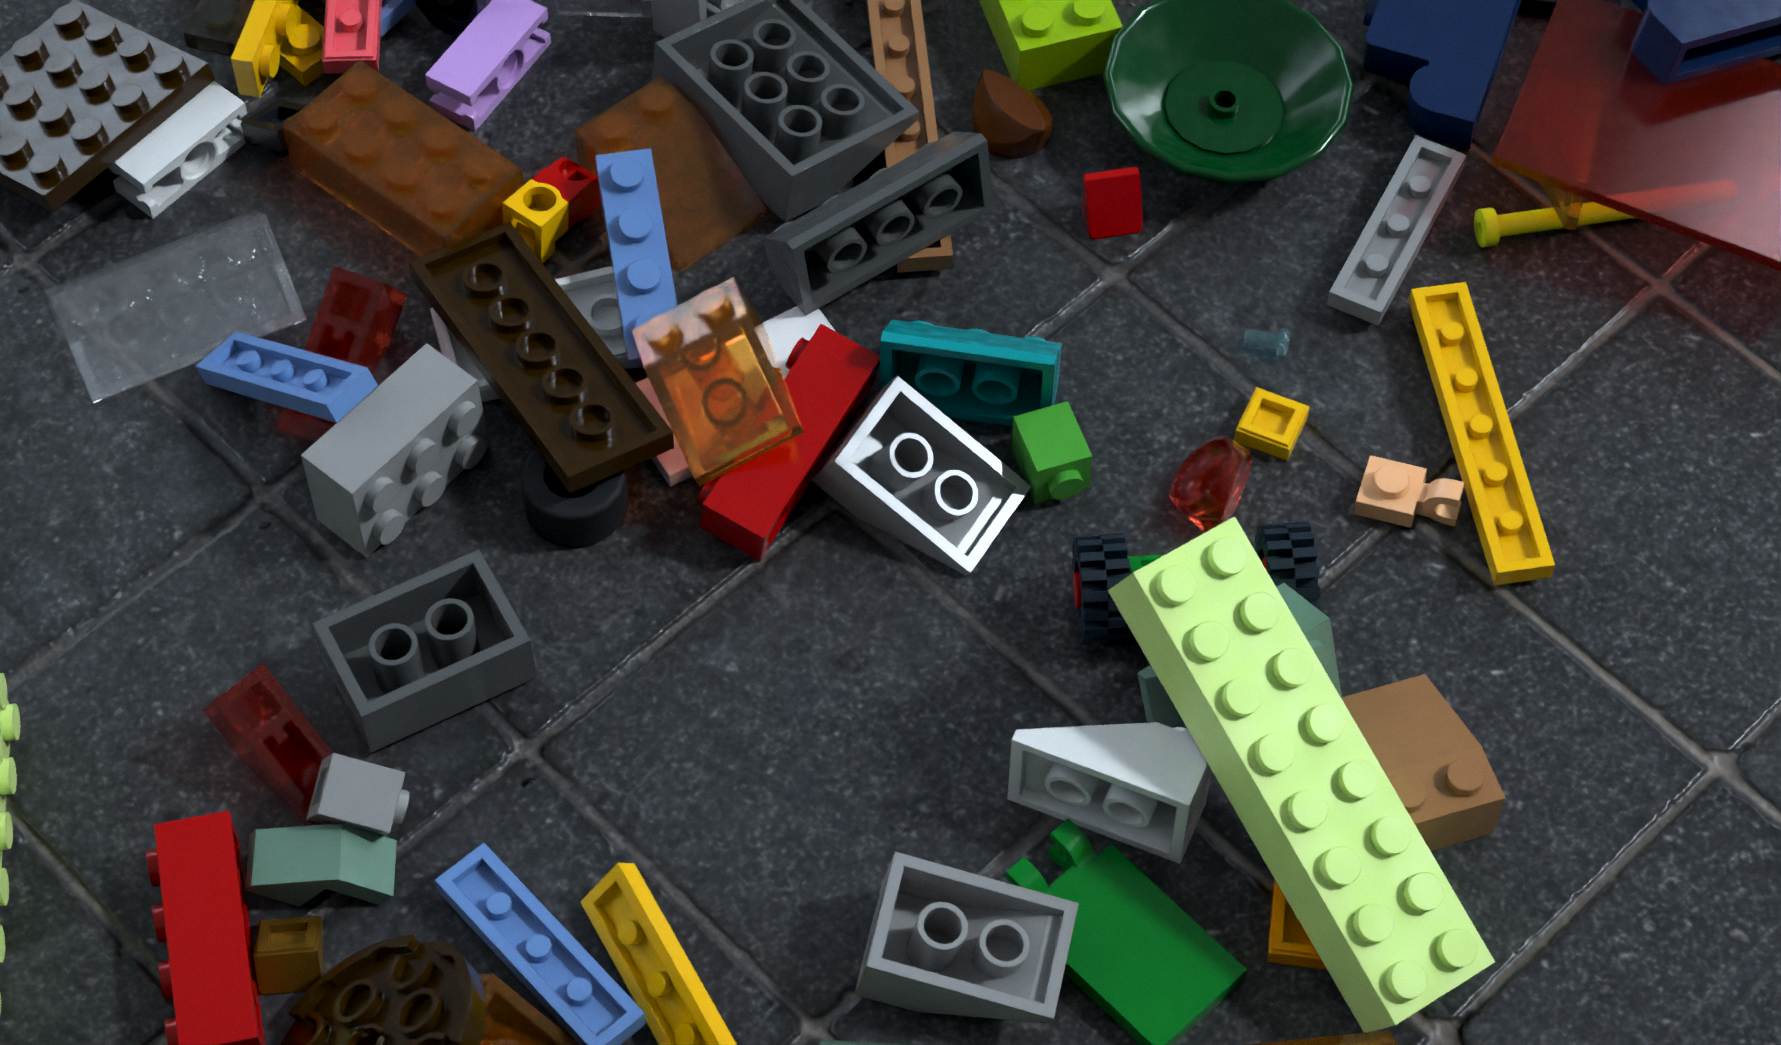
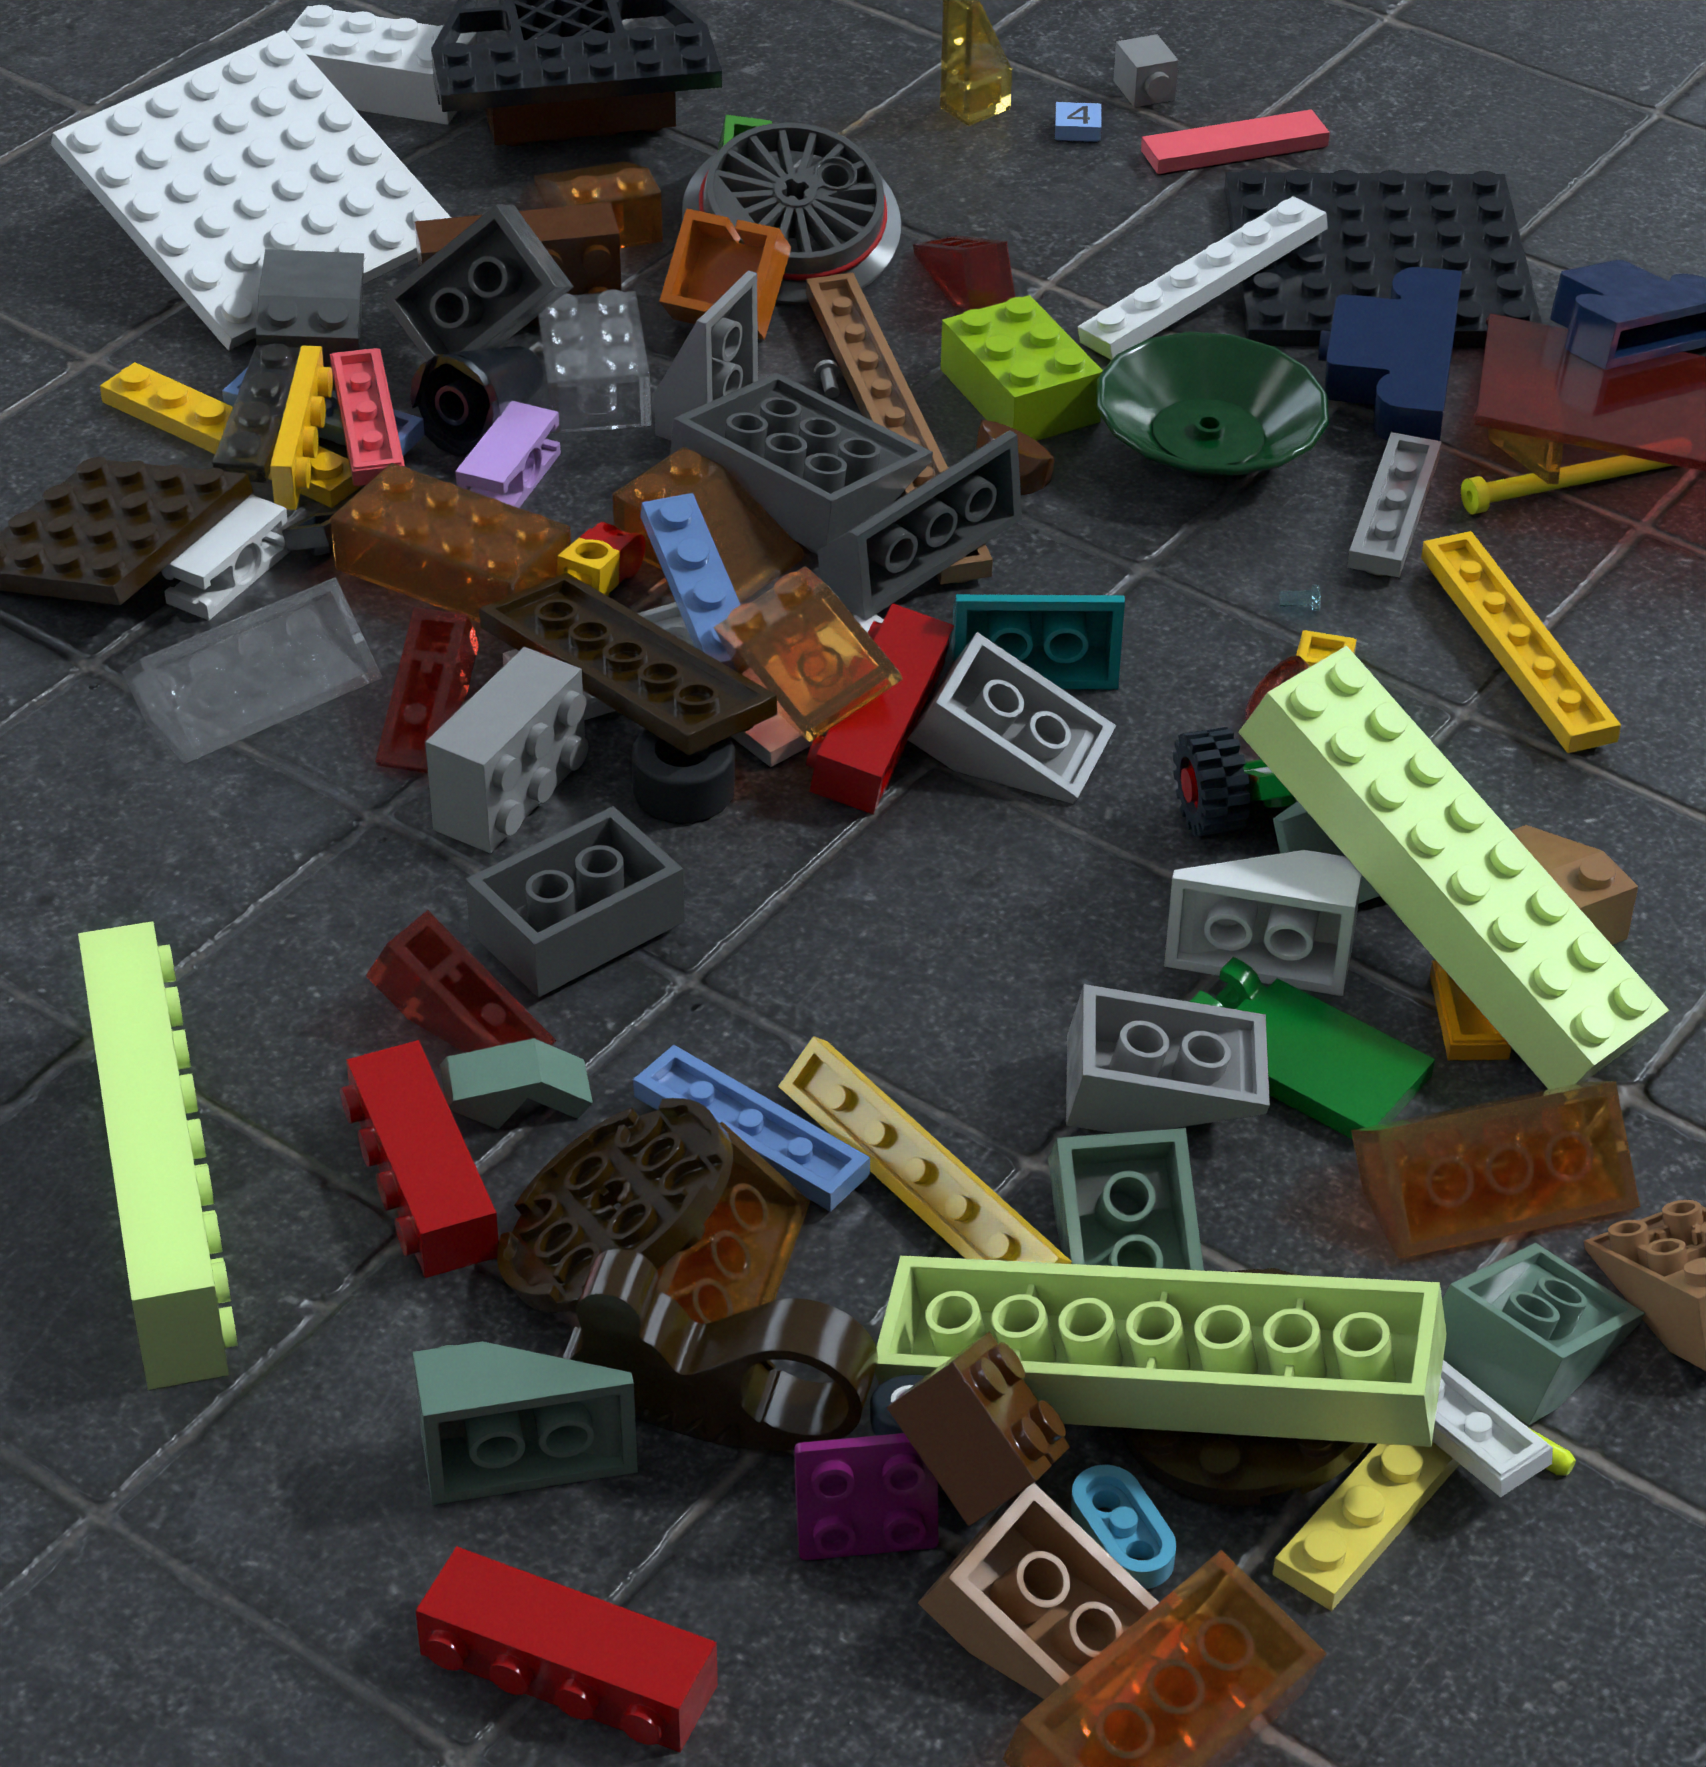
camera: 10 degrees left, 15 degrees down
(287, 376) = (386, 701): medium blue plate -> none
(288, 954) = (504, 1162): pearl gold slope -> none
(358, 795) = (542, 1010): light grey brick -> none
(1051, 452) = (1129, 694): bright green brick -> none
(1112, 203) = (1127, 509): red slope -> none
(1398, 491) = (1459, 694): light nougat plate -> none

